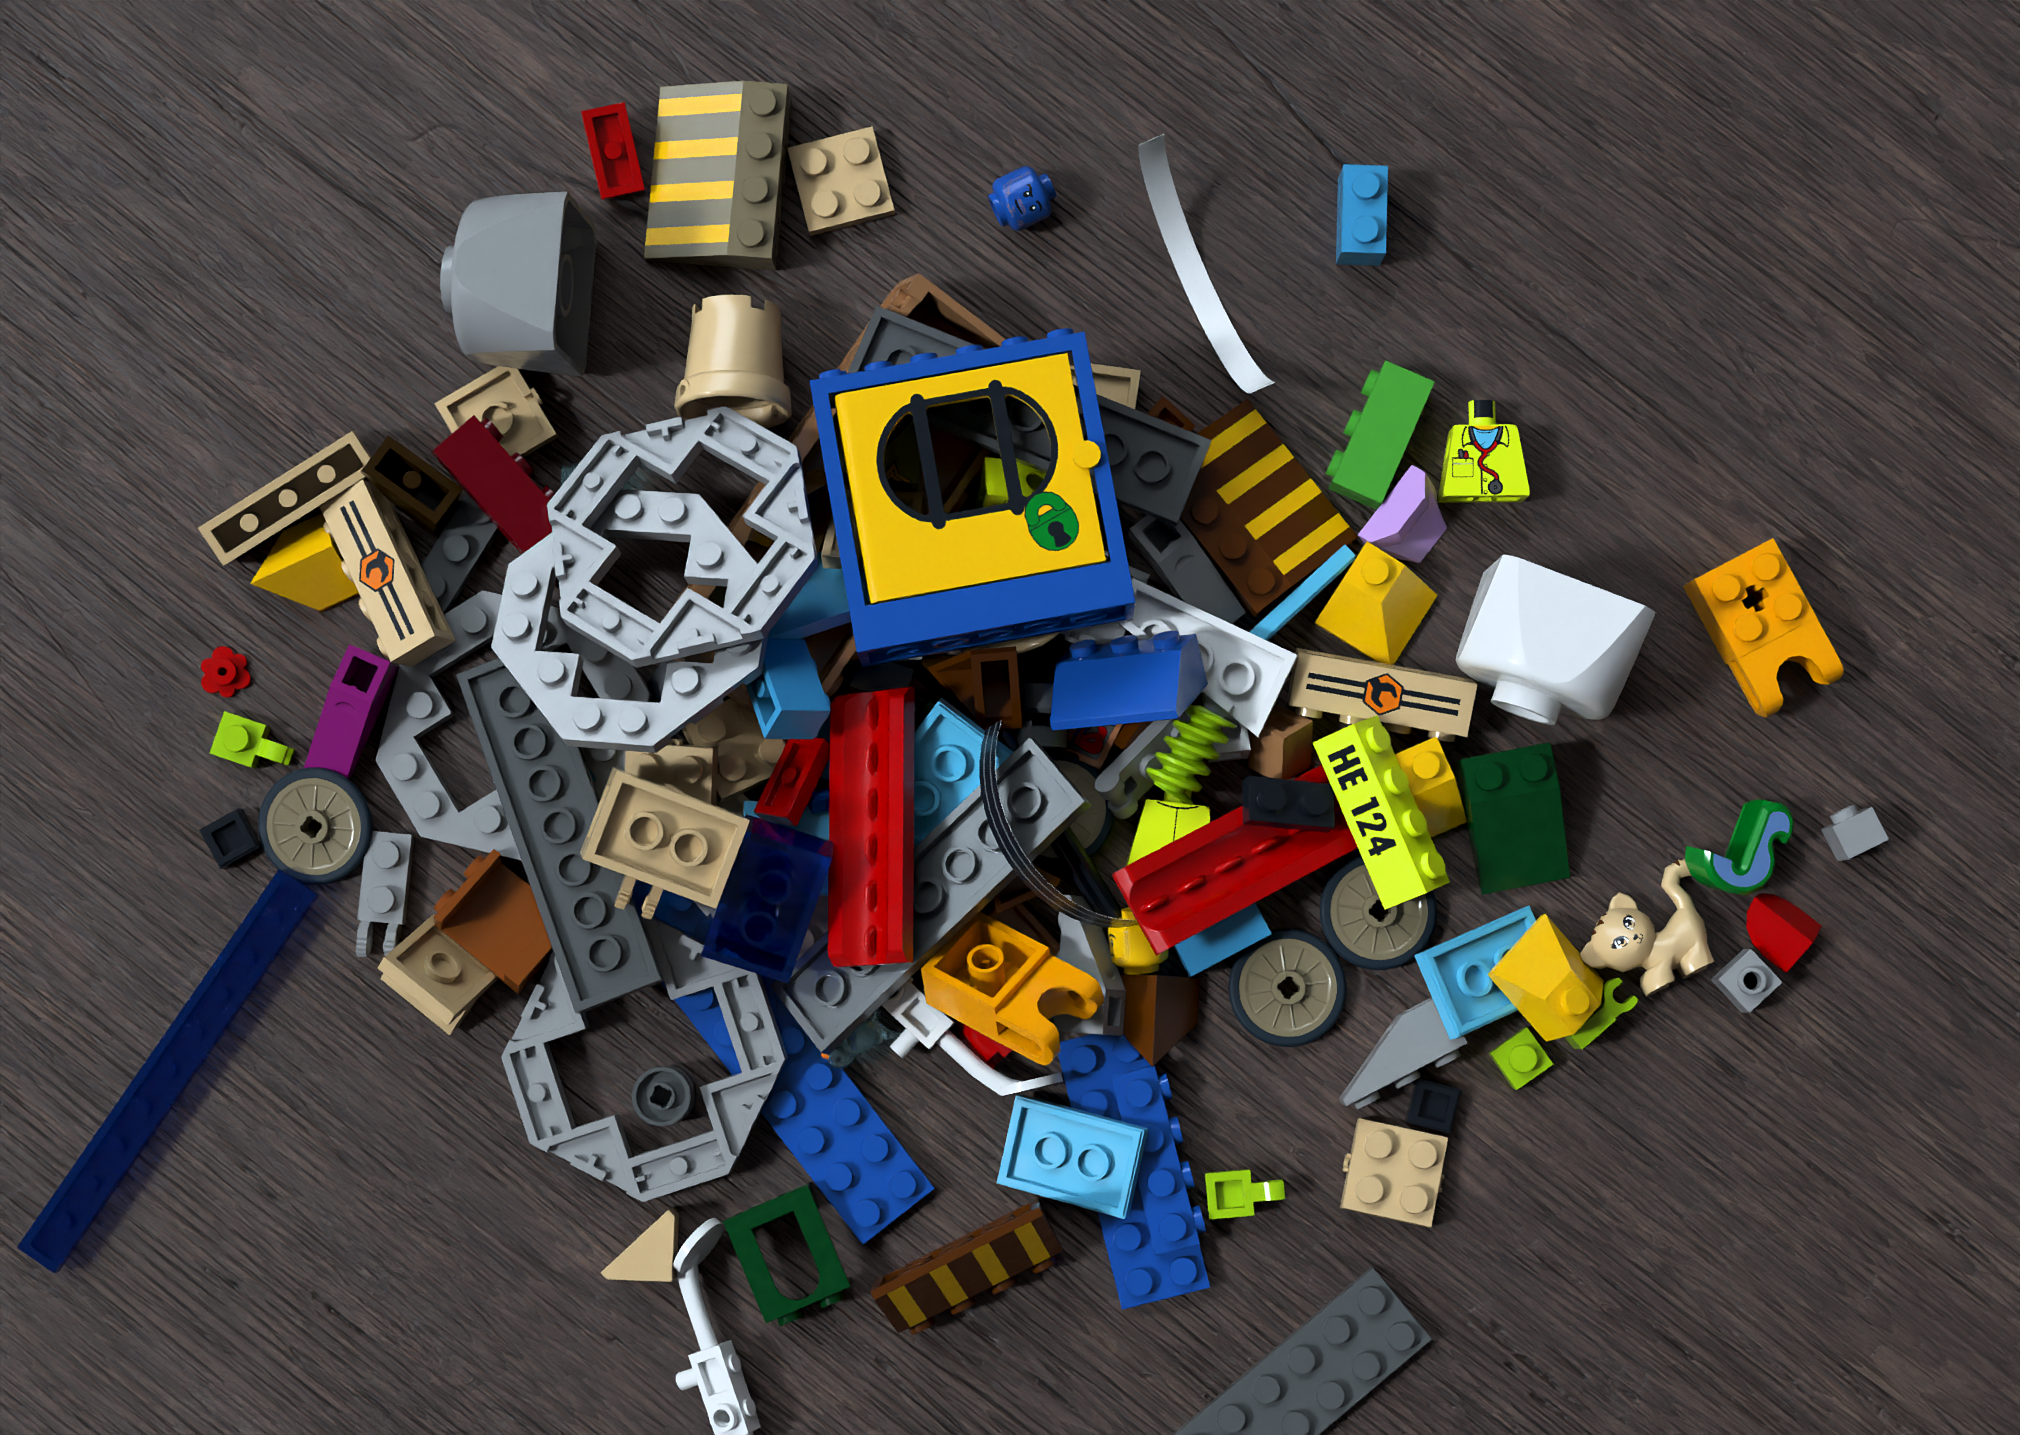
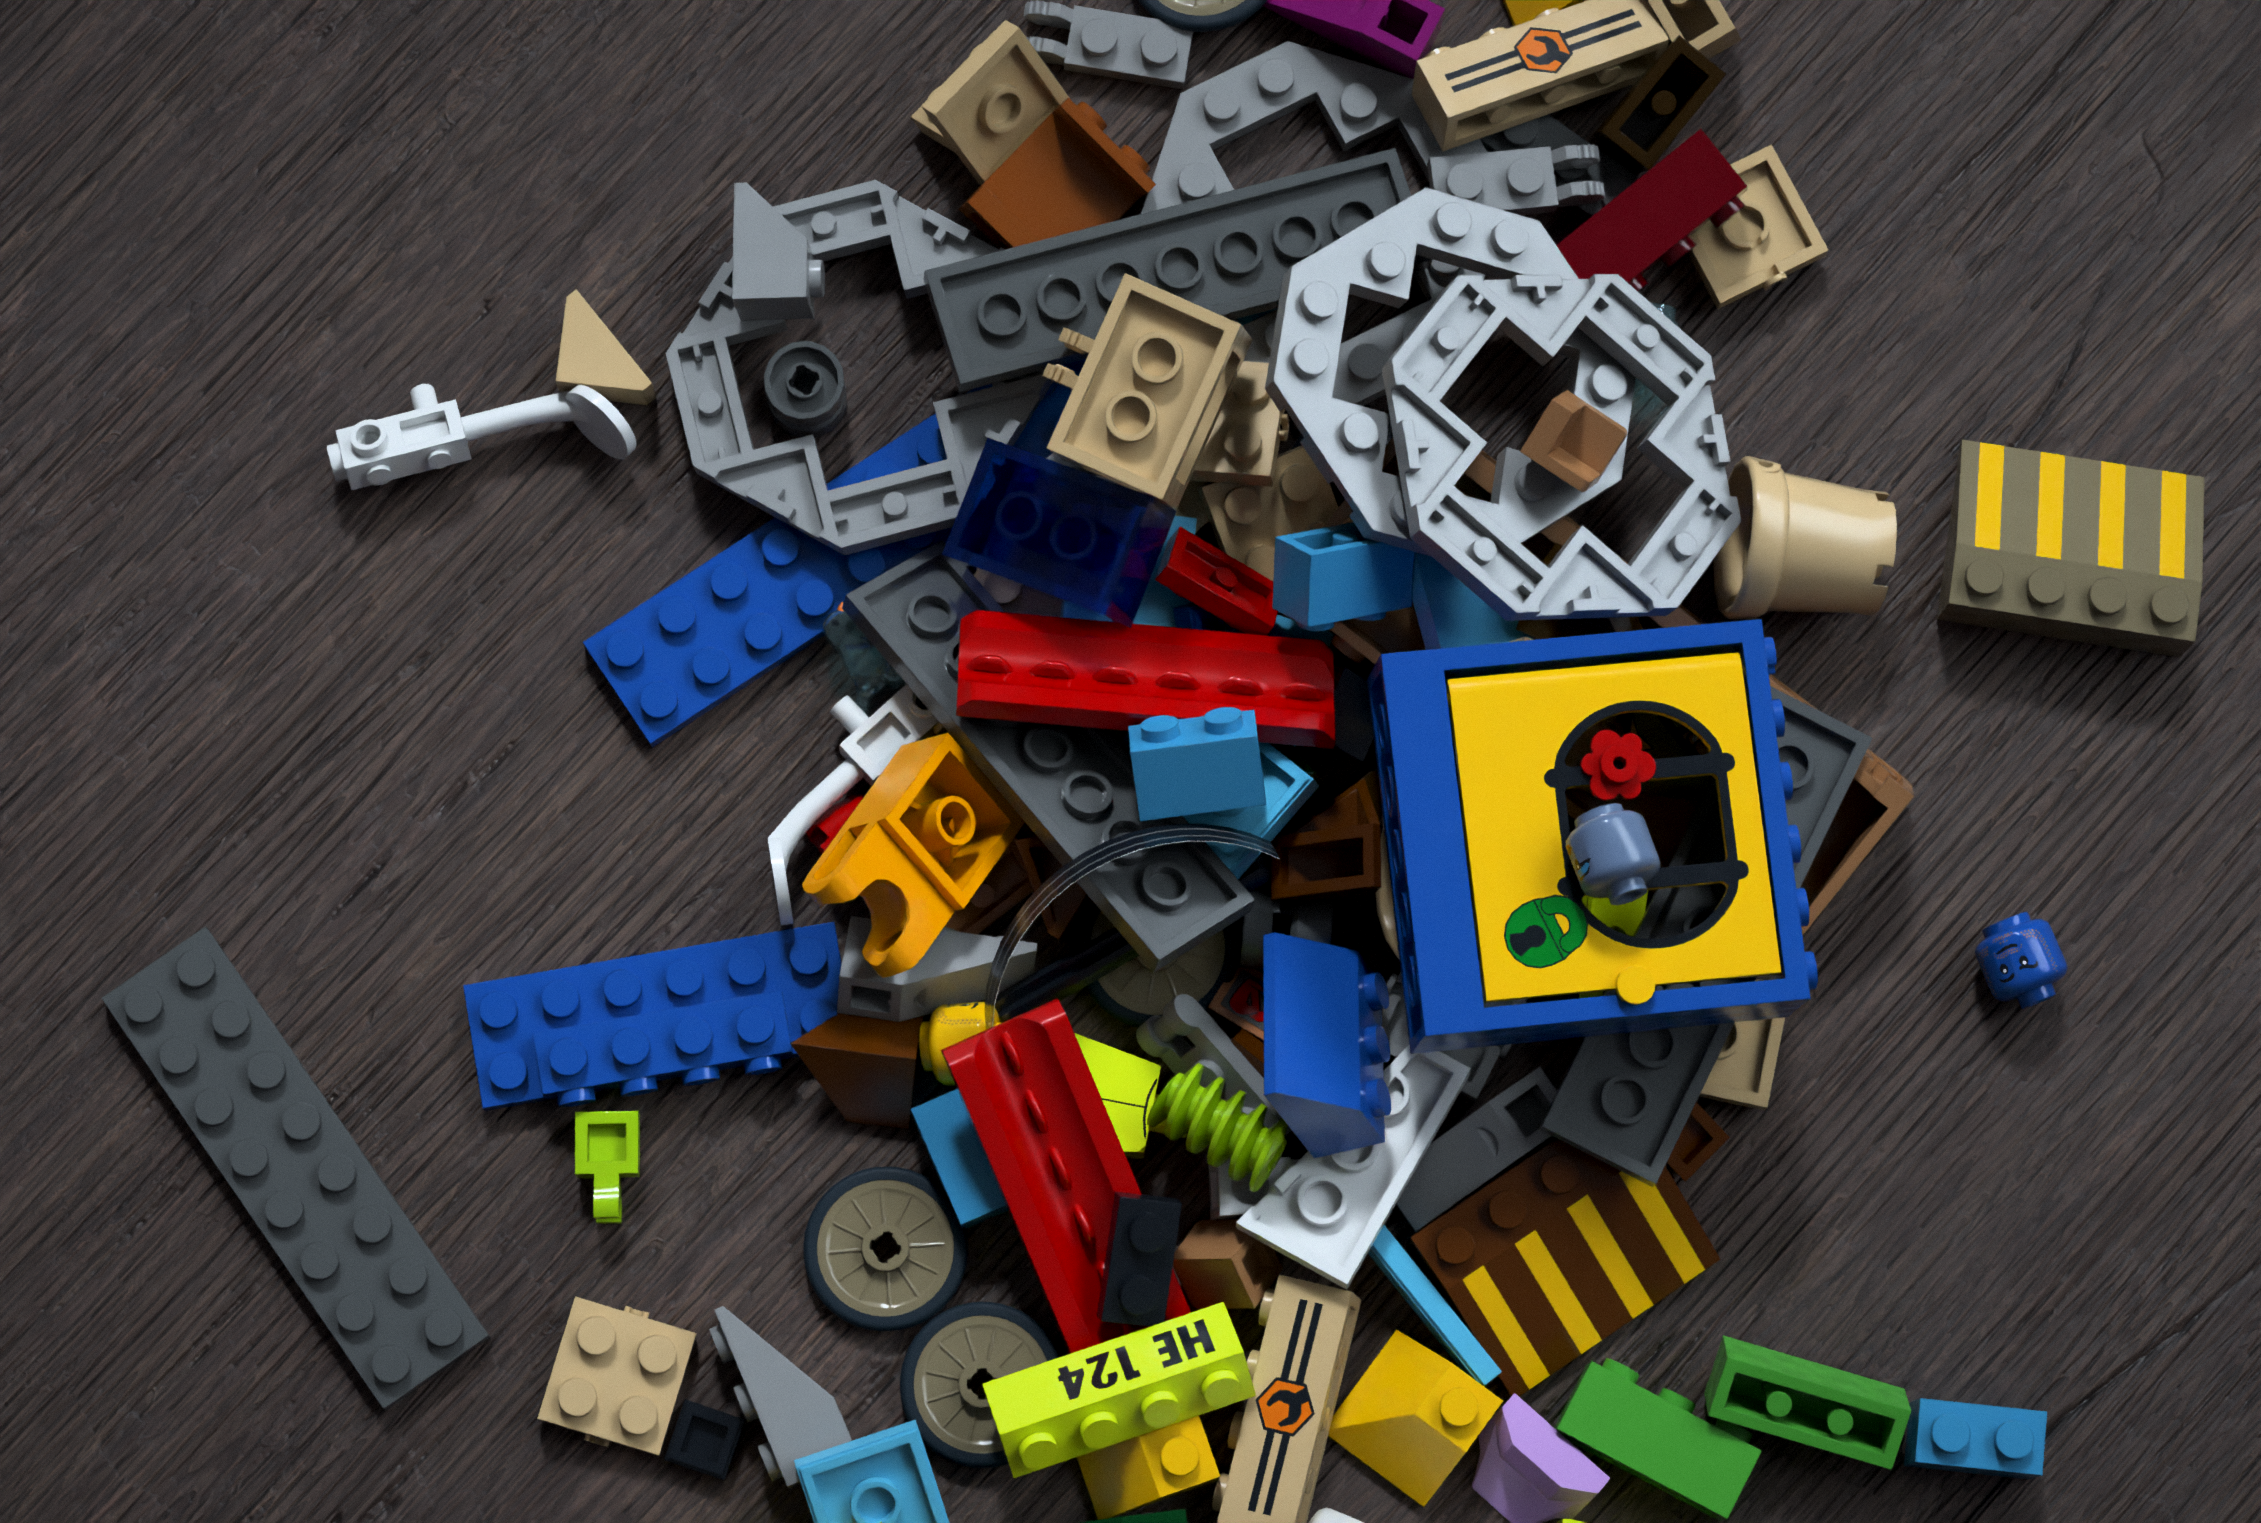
camera: 90 degrees right, 5 degrees down
(474, 587) = (1518, 179): none -> light grey hinge
(522, 282) = (1927, 265): light grey piece -> none
(572, 1128) = (771, 263): none -> light grey slope
(612, 150) = (2113, 403): red plate -> none
(679, 525) = (1574, 441): none -> medium nougat panel
(830, 1268) = (548, 594): dark green panel -> none
(841, 181) = (2059, 715): tan plate -> none
(927, 489) = (1606, 779): none -> red plant
(937, 783) = (1196, 764): none -> dark azure brick
(967, 1267) = (538, 775): reddish brown slope -> none
(995, 475) = (1612, 853): none -> sand blue head
(1072, 1156) = (677, 930): medium azure tile -> none
(1192, 270) = (1907, 1195): white sticker -> none
(1347, 331) = (1807, 1402): none -> bright green brick

